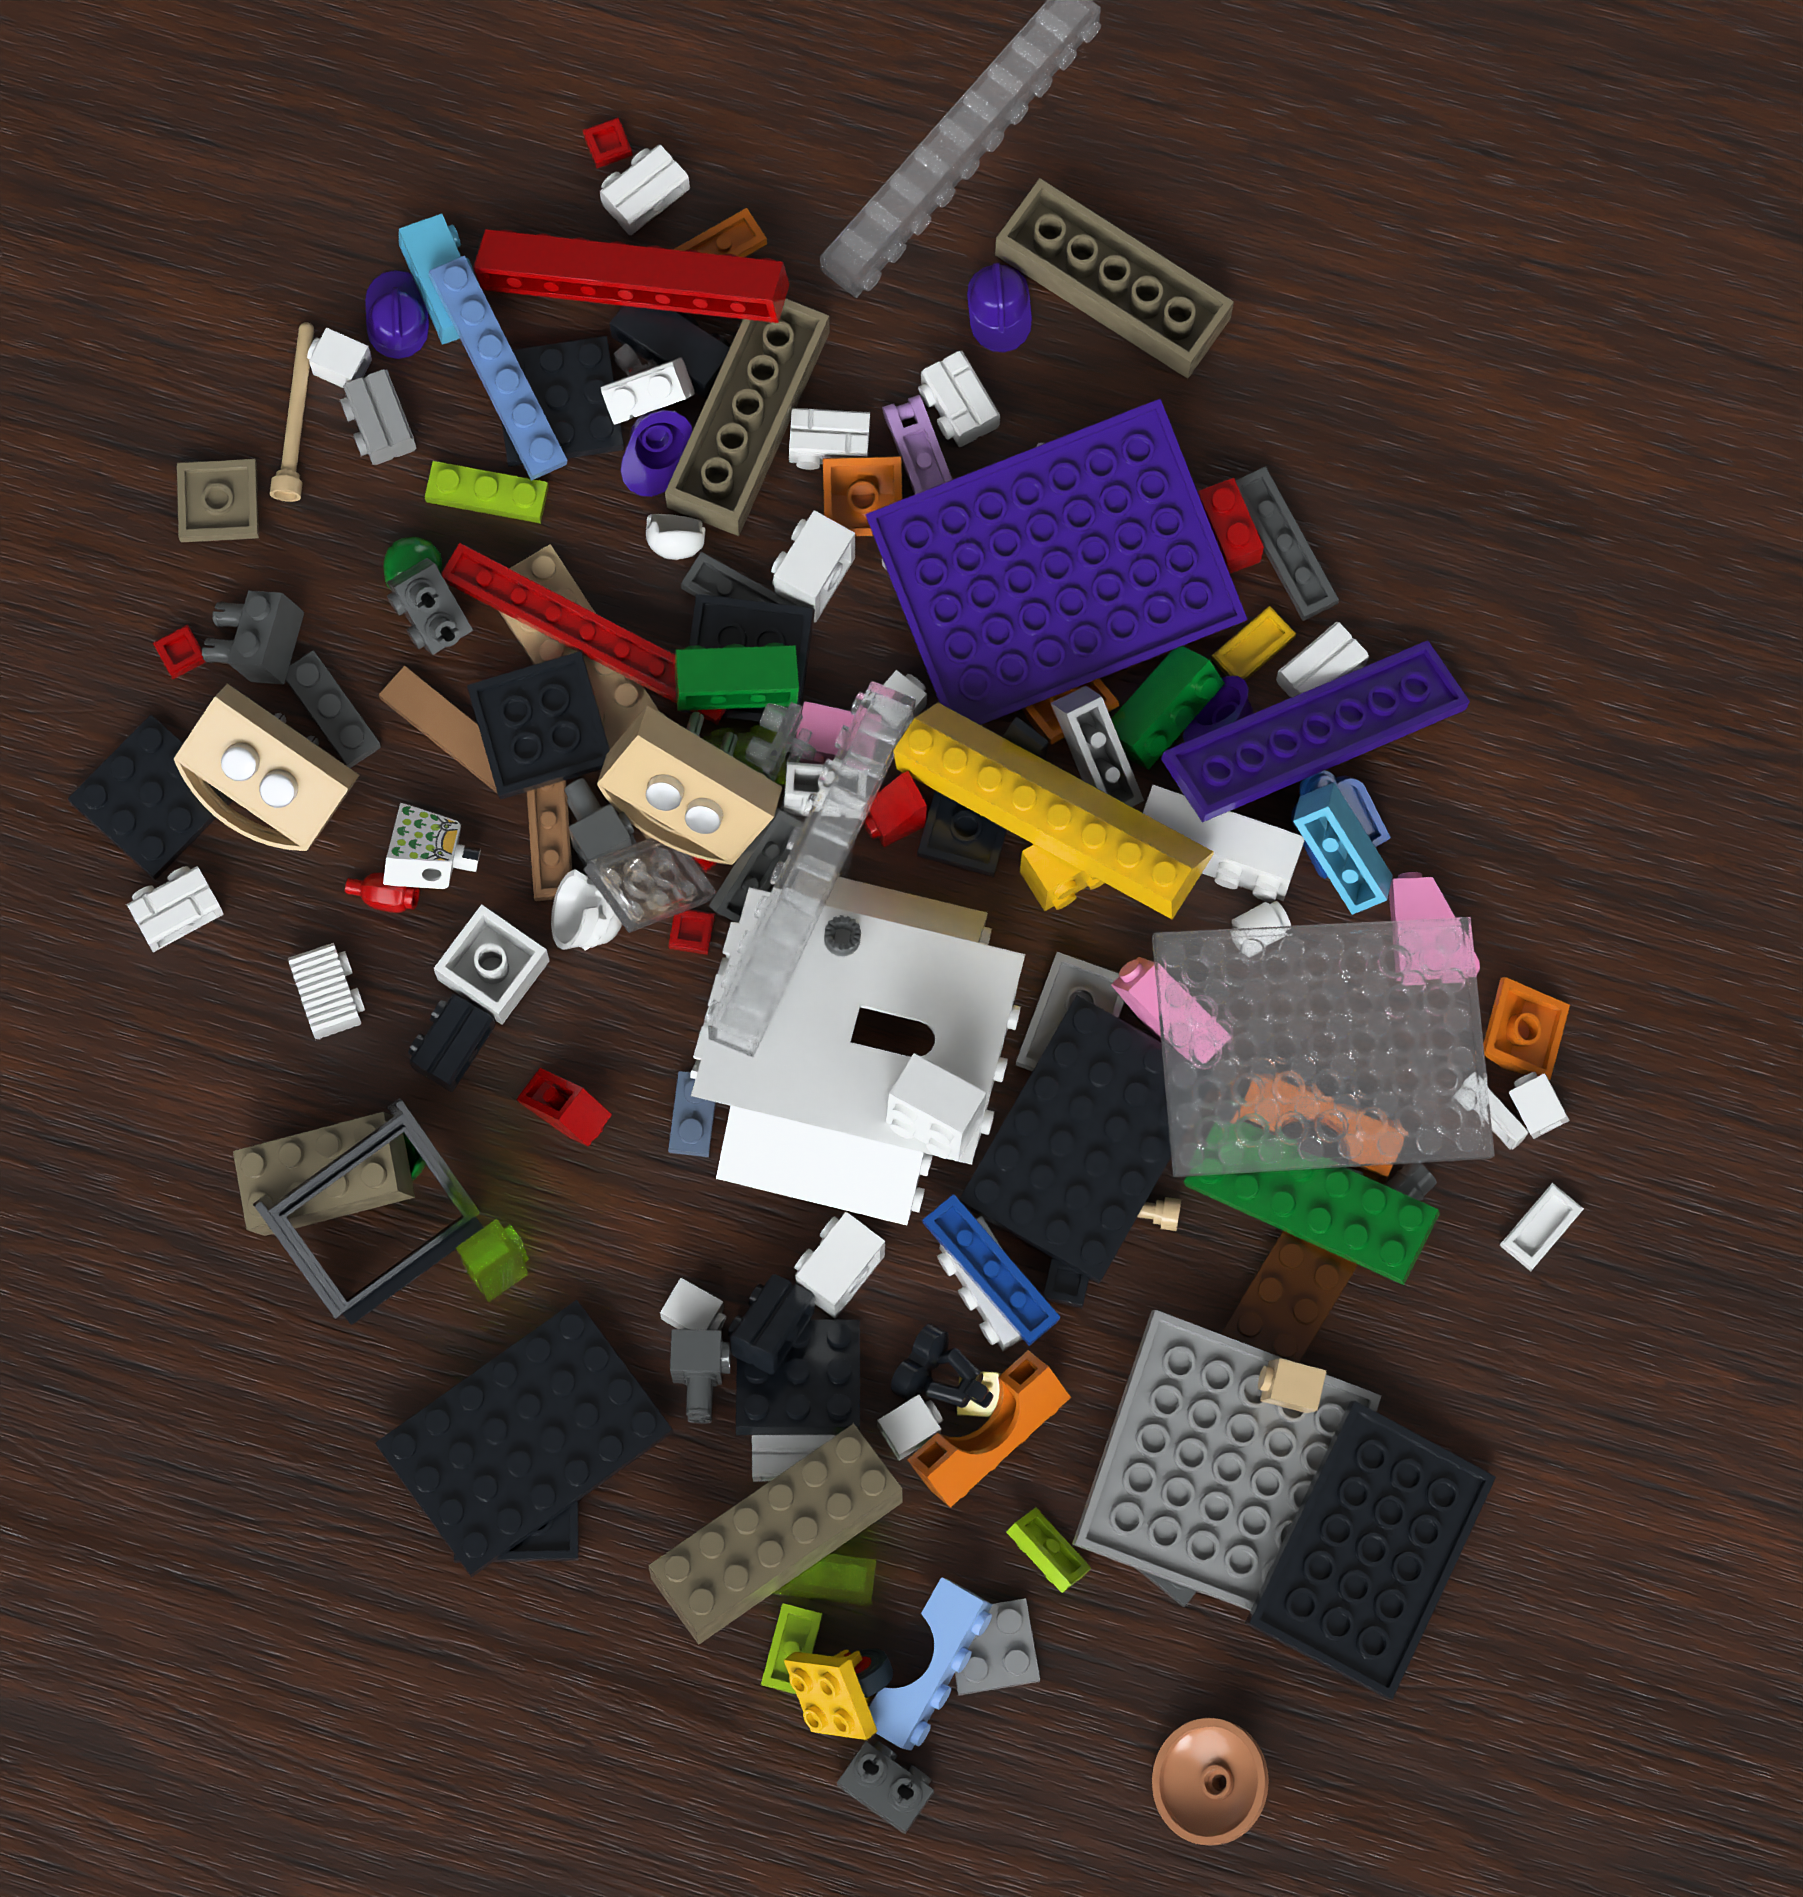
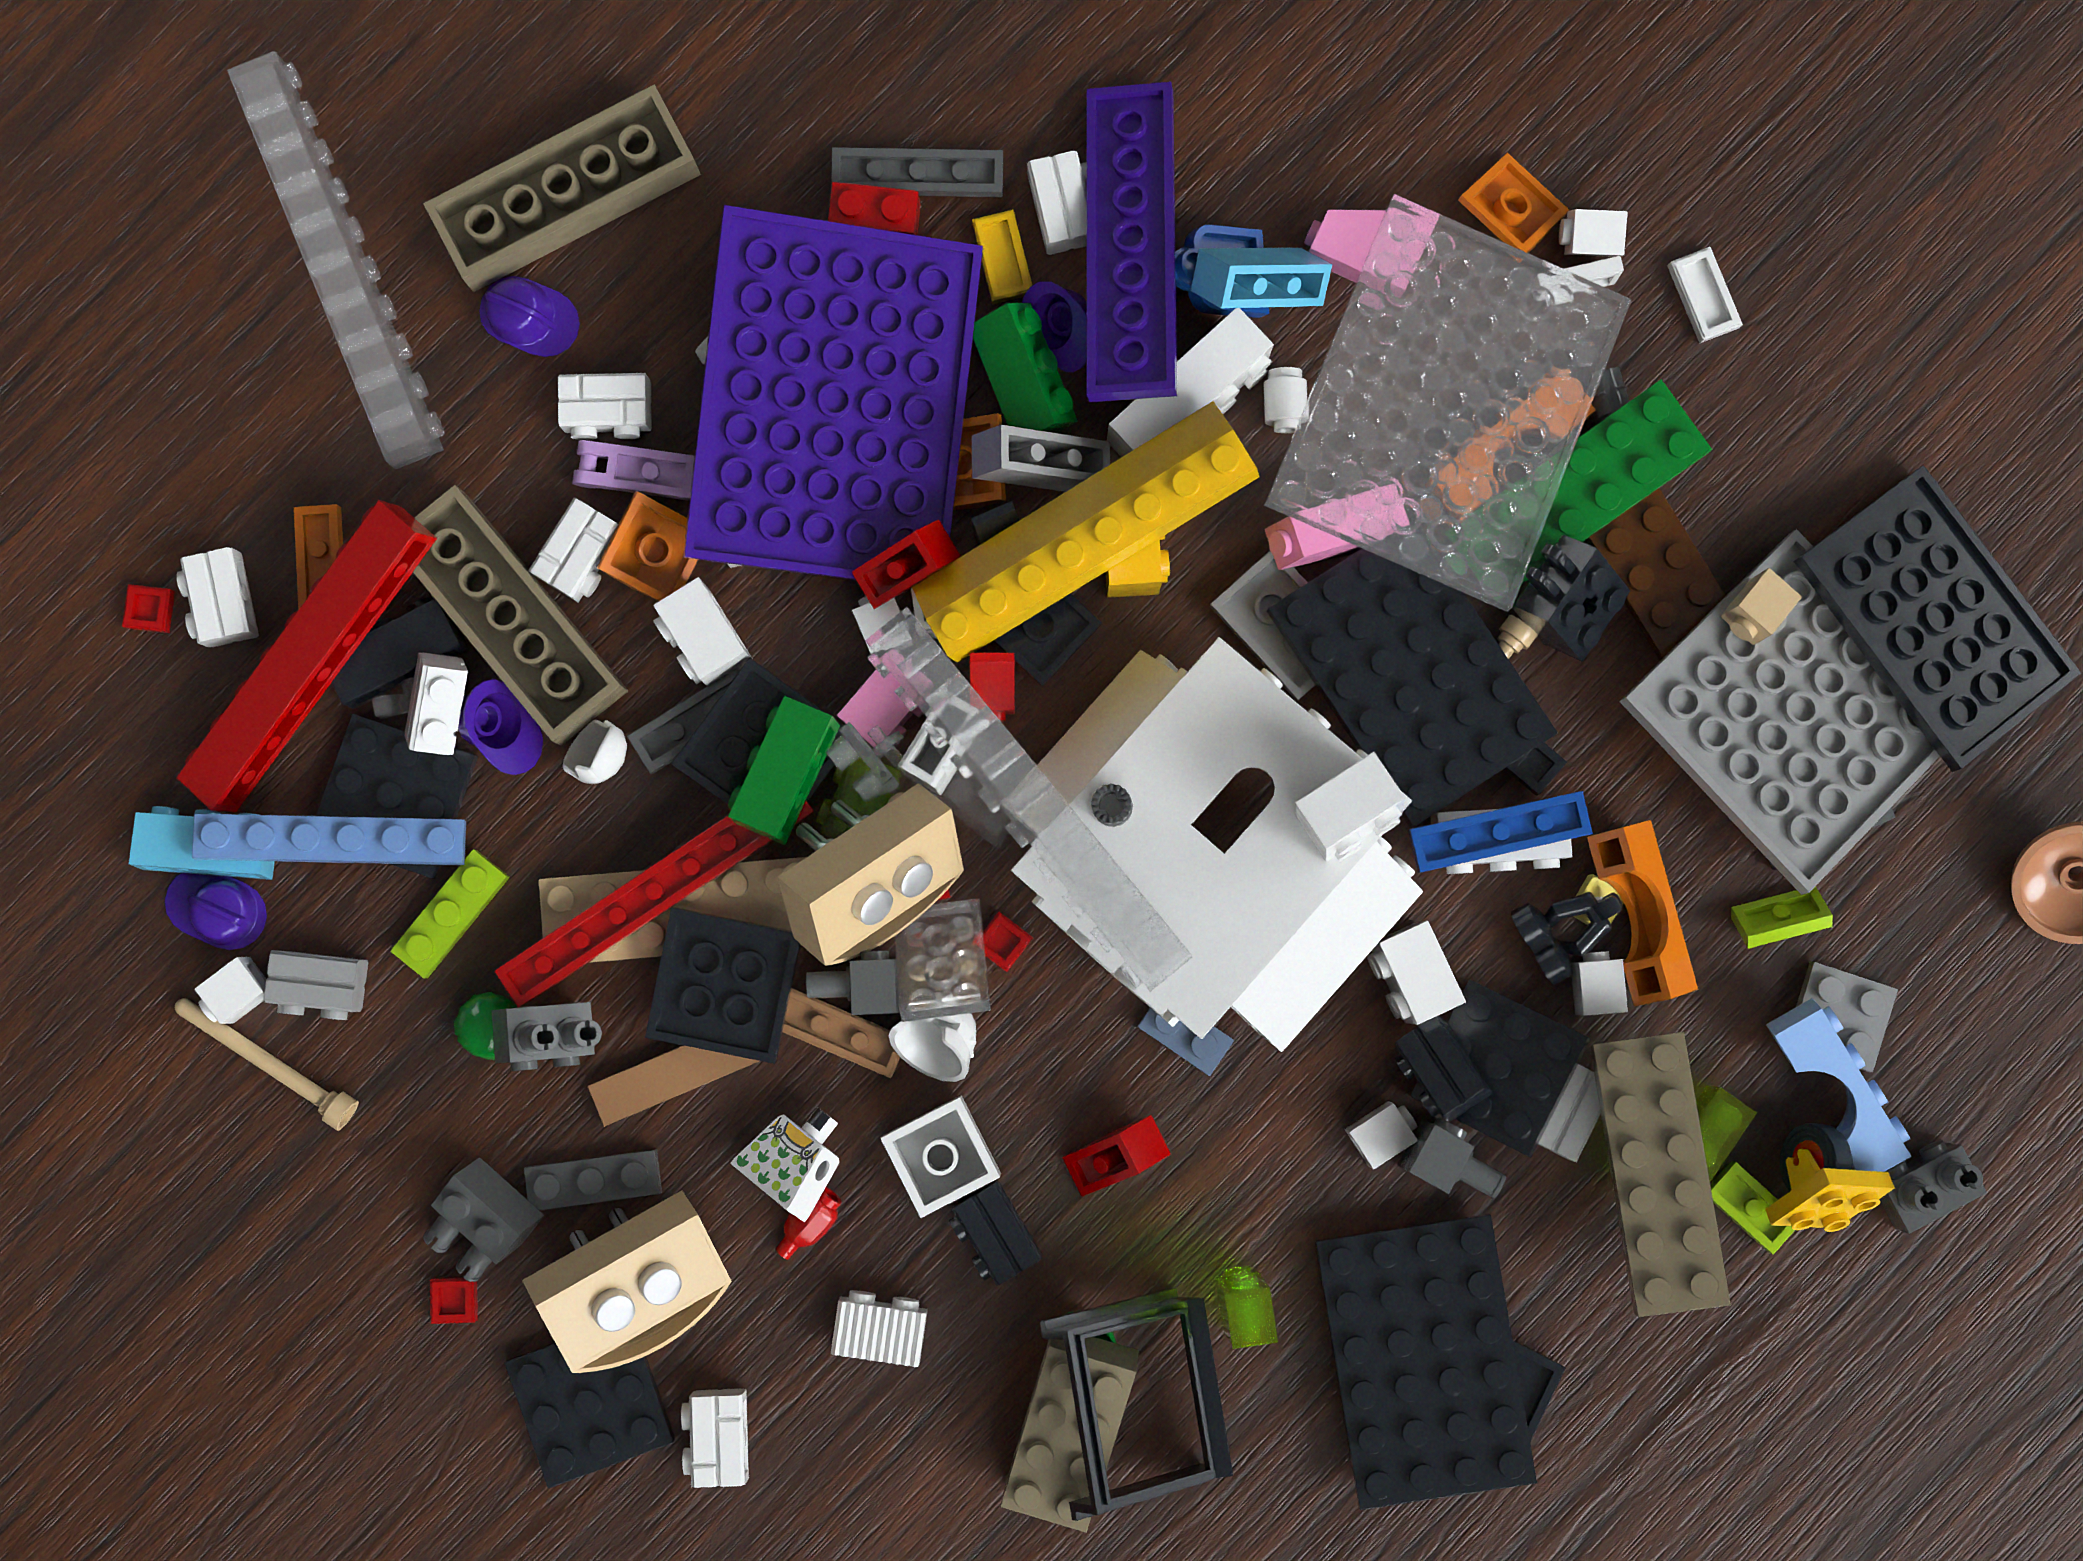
camera: 60 degrees left, 10 degrees up
(217, 500) = (316, 1185): dark tan plate -> none
(755, 865) = (981, 848): dark grey plate -> none
(955, 688) = (906, 563): none -> red slope
(1218, 1231) = (1571, 597): none -> black hinge

